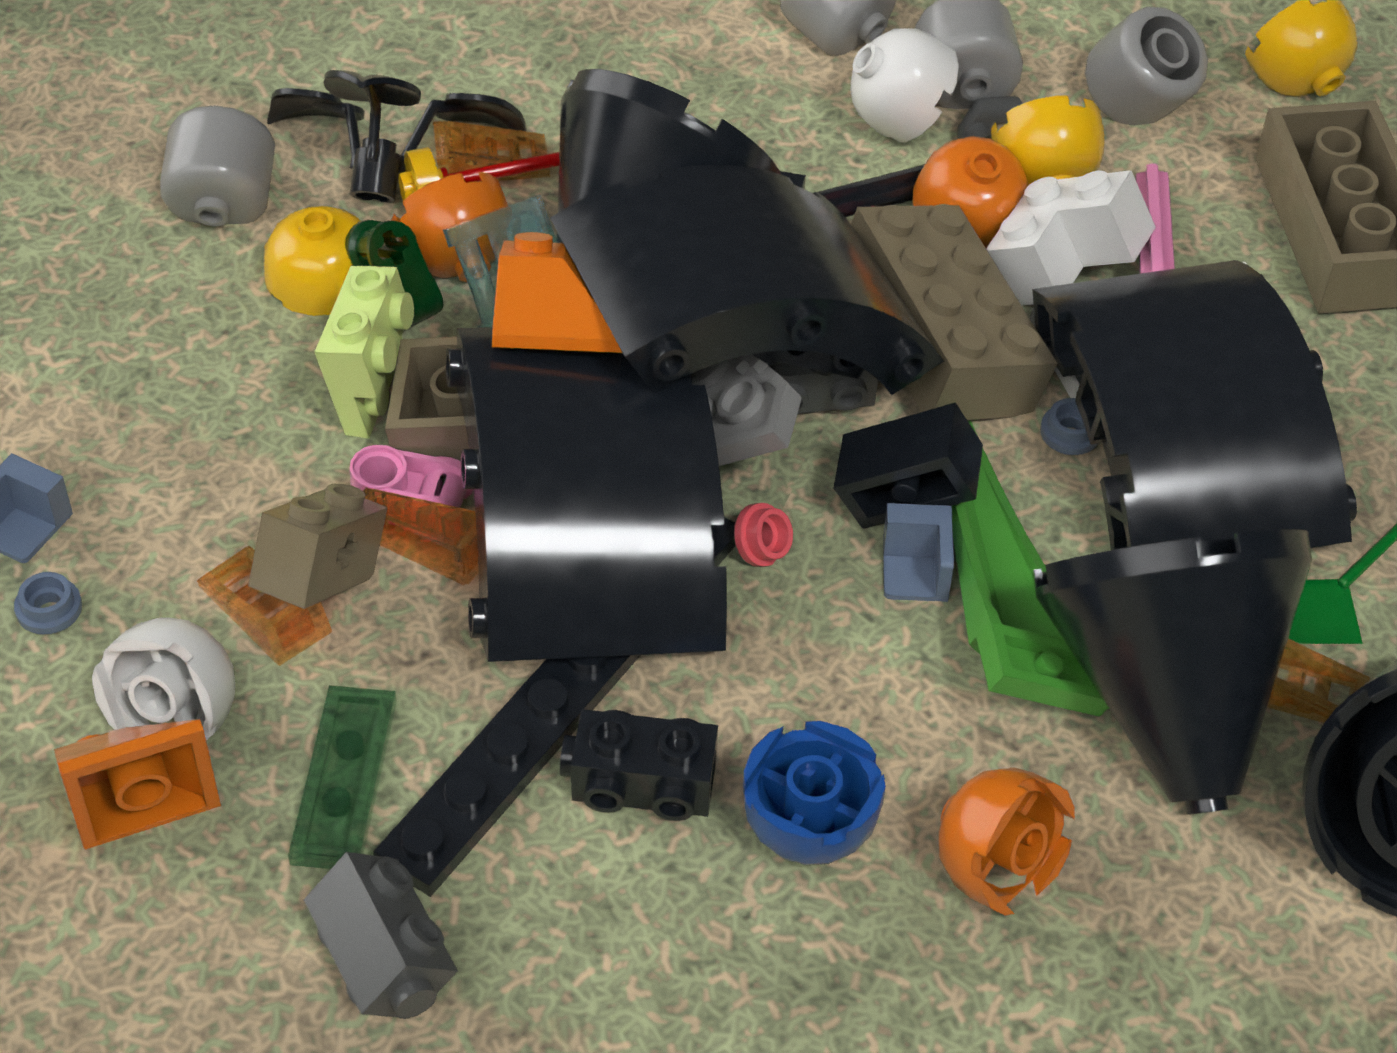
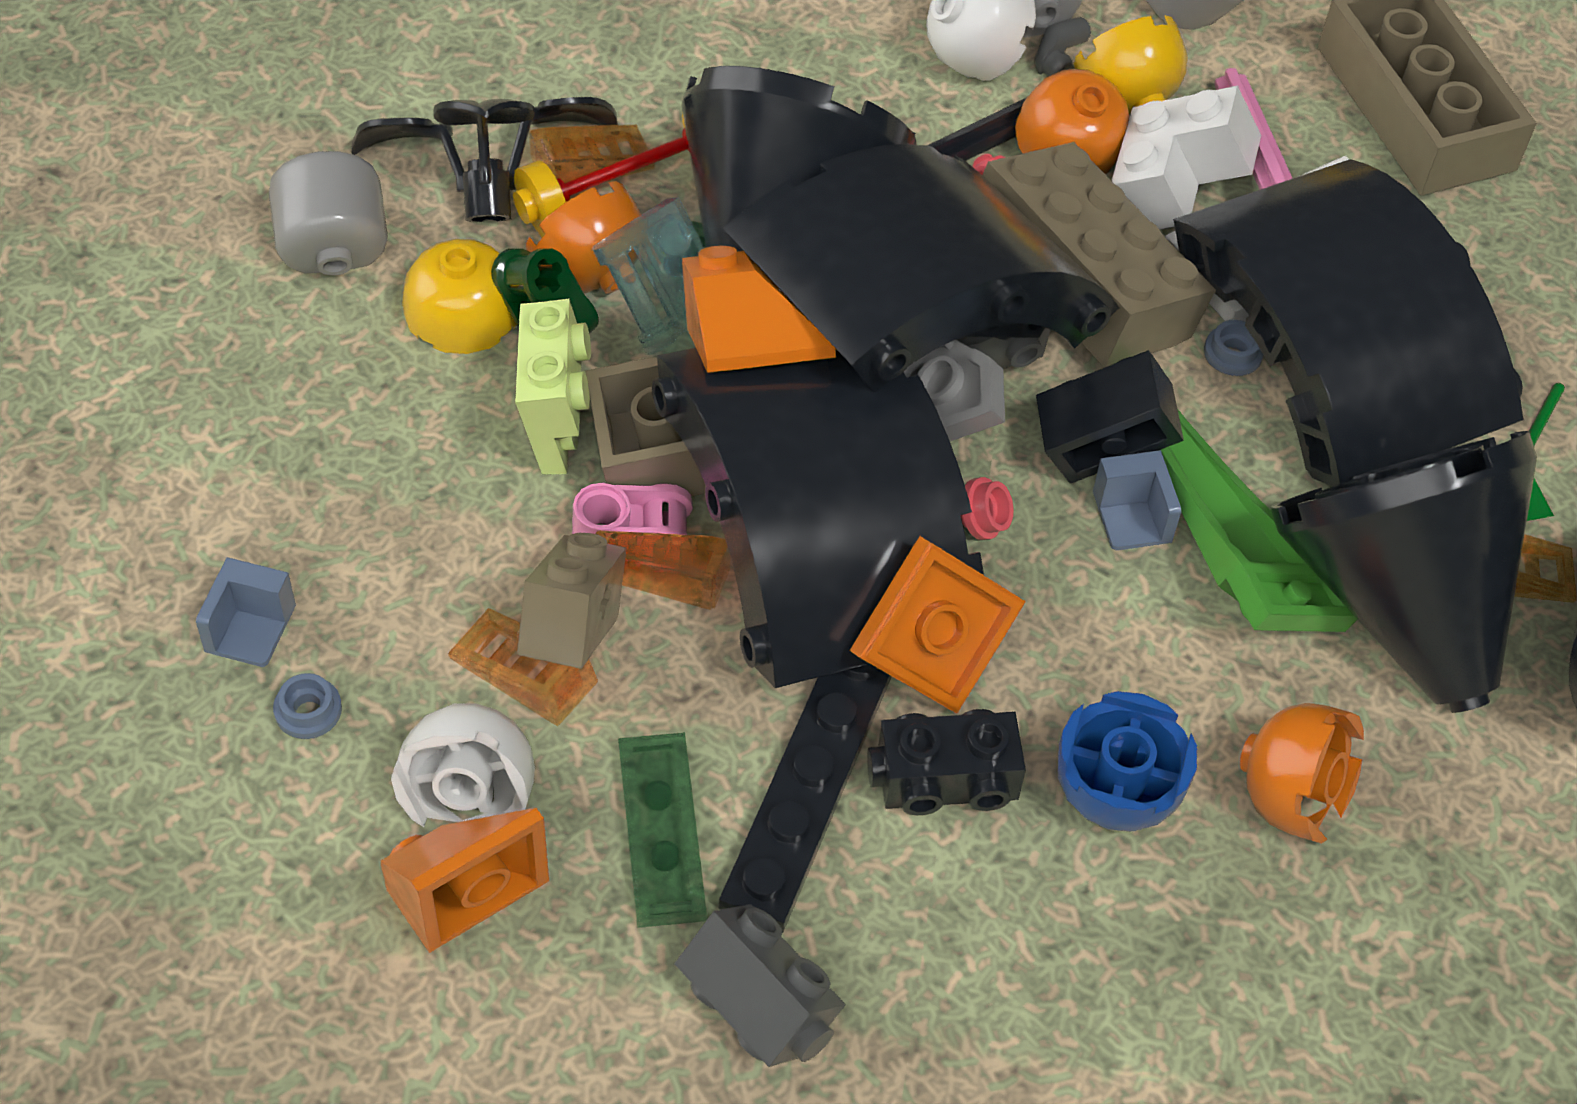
camera: 15 degrees left, 5 degrees up
(664, 629) = (937, 625): none -> orange plate

